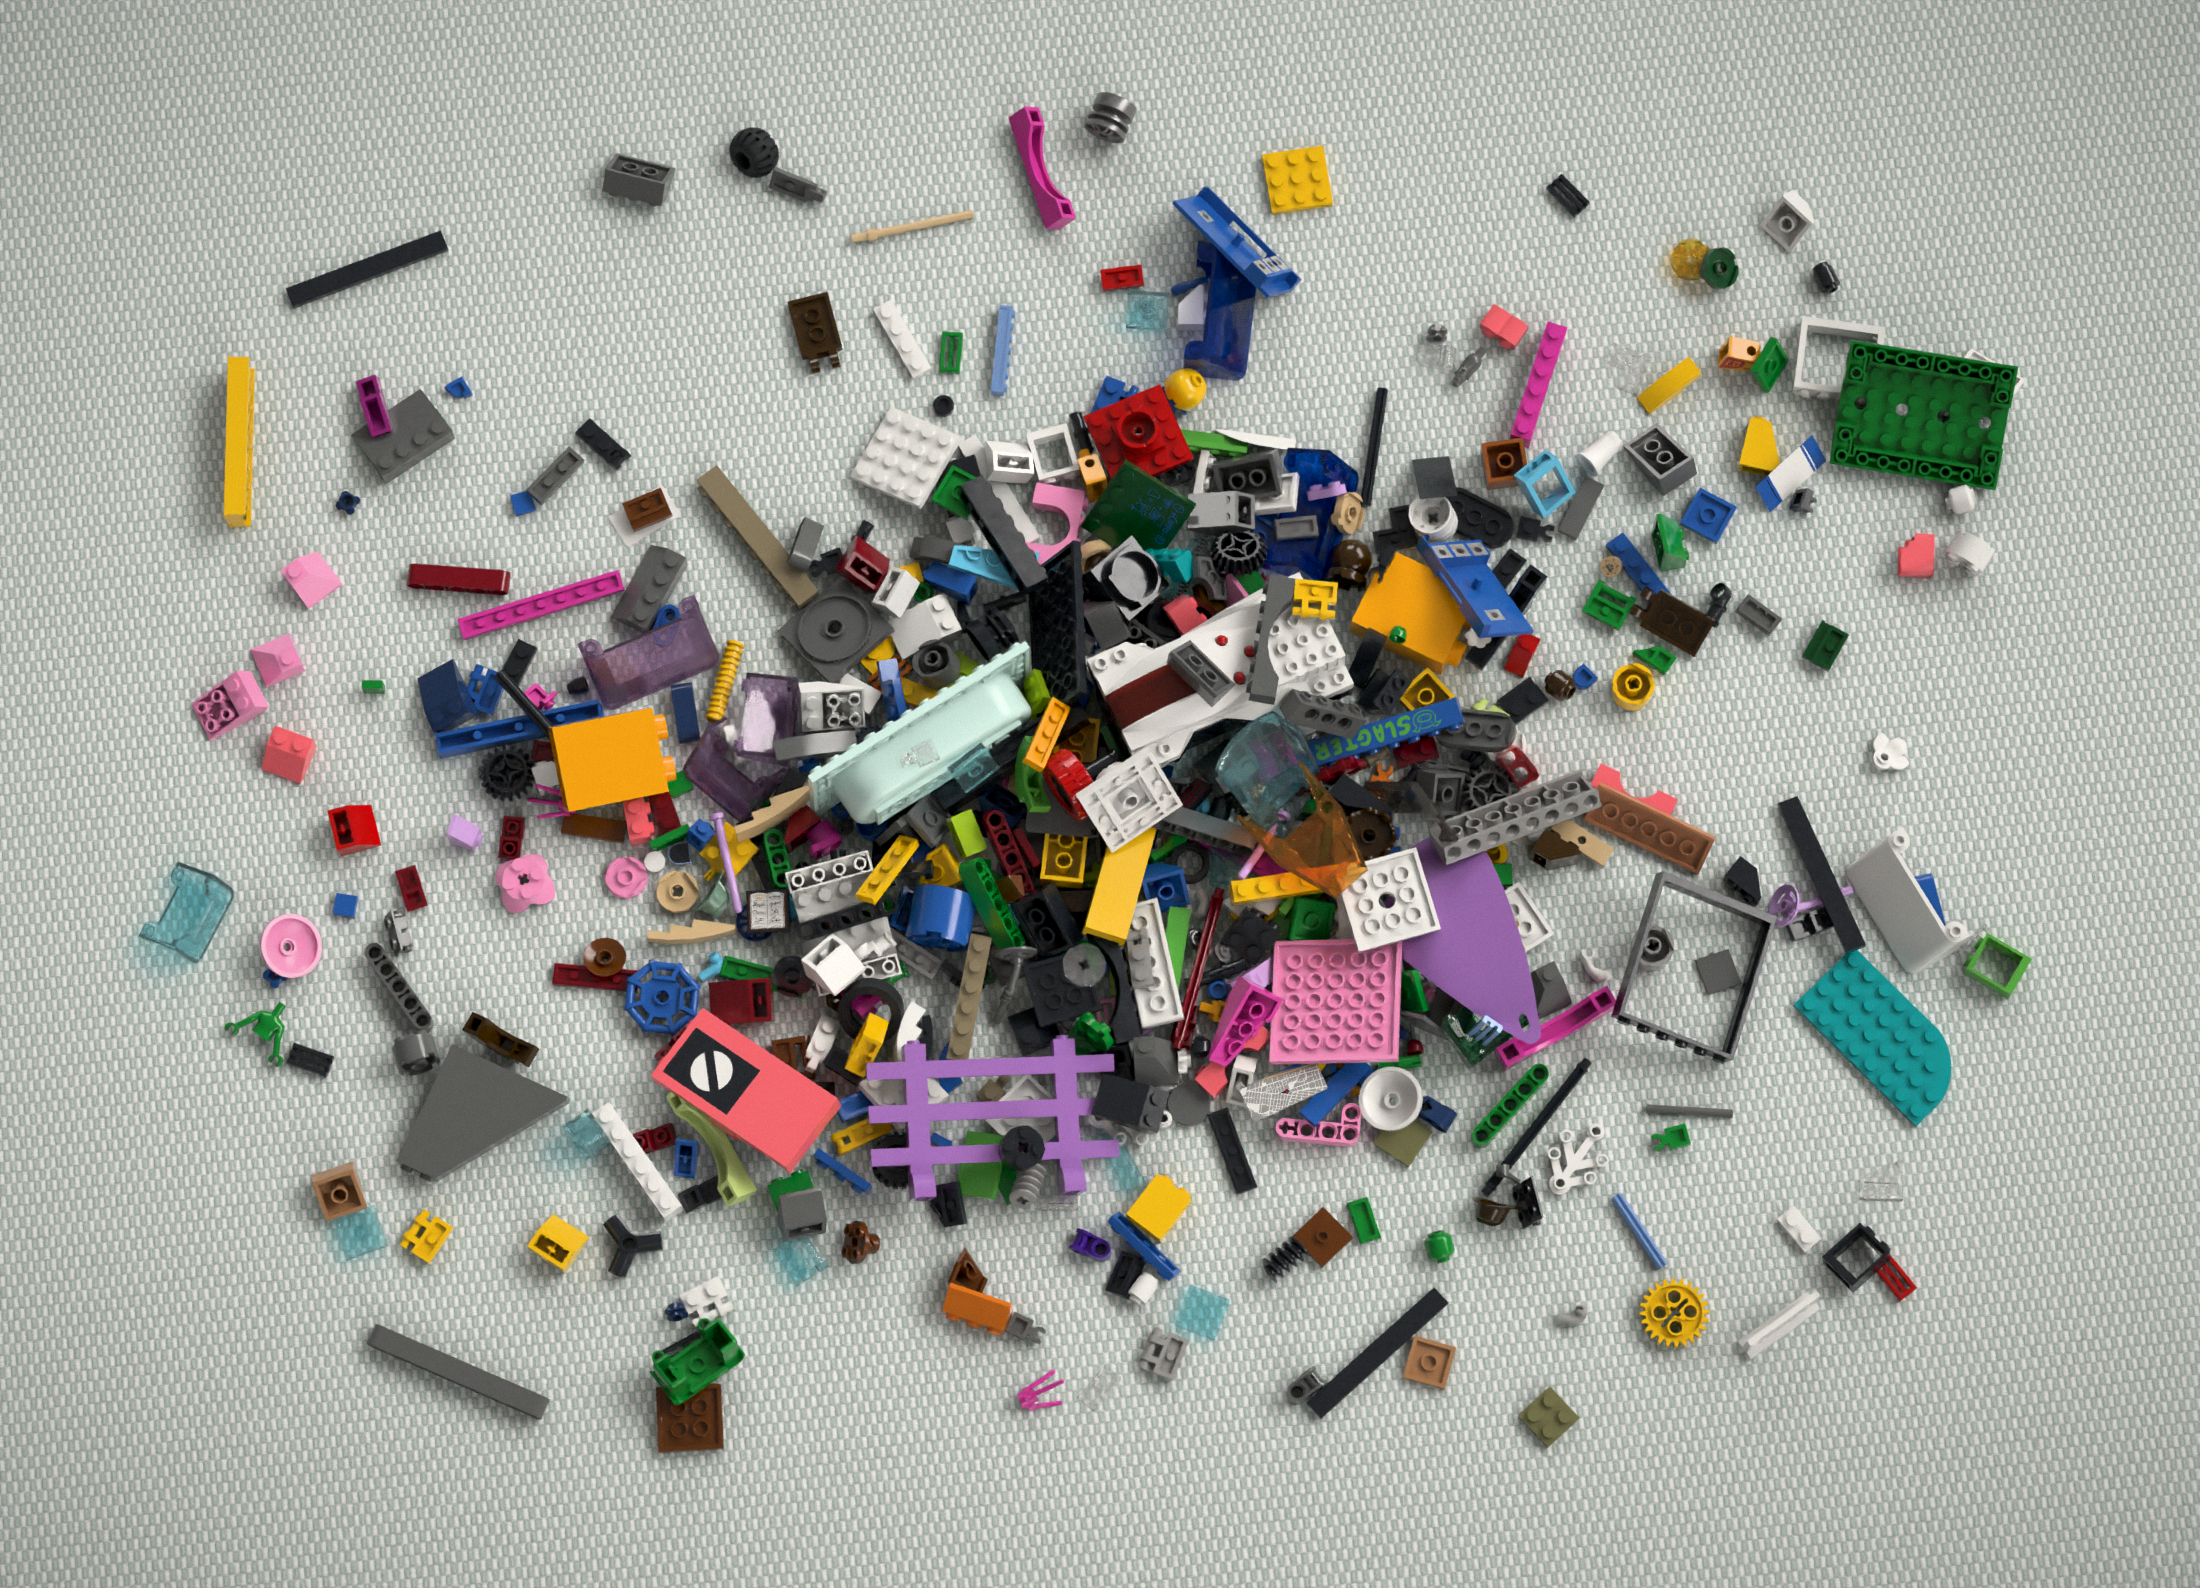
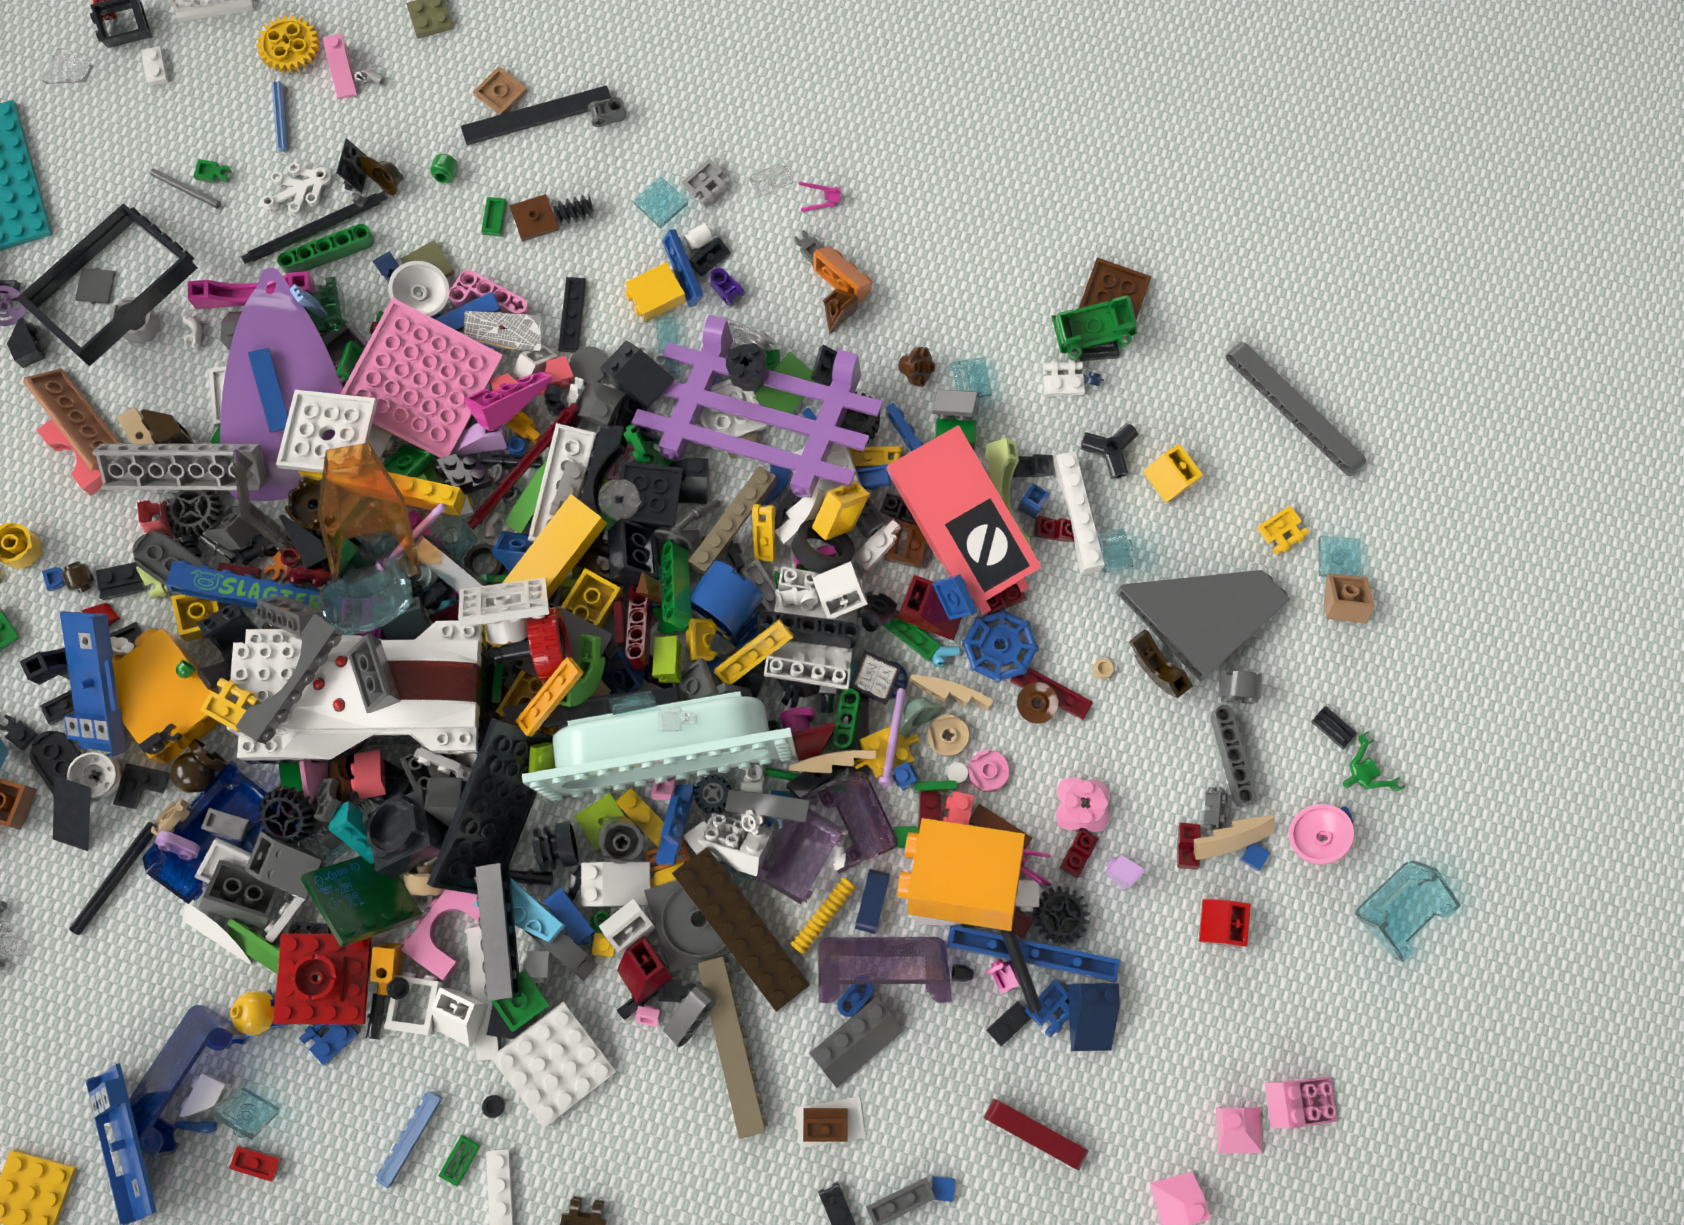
camera: 165 degrees left, 0 degrees up
(288, 754) = (1261, 1026): coral slope -> none
(366, 914) = (1239, 835): none -> tan slope
(373, 686) = (1157, 1058): green tile -> none
(541, 605) = (966, 1071): dark pink plate -> none
(554, 1021) = (1103, 669): none -> tan tile
(680, 854) = (931, 770): black tile -> none
(722, 1010) = (954, 597): none -> blue plate
(792, 634) = (741, 928): none -> dark brown plate
(822, 724) = (747, 824): none -> white plate
(843, 532) = (647, 1016): none -> bright pink plate
(934, 1002) = (764, 533): none -> yellow plate
(1068, 457) = (398, 988): none -> black plate
(1364, 774) = (287, 560): none -> dark red hinge
(1464, 917) = (269, 389): none -> blue tile
(1606, 1312) = (340, 65): none -> bright pink slope

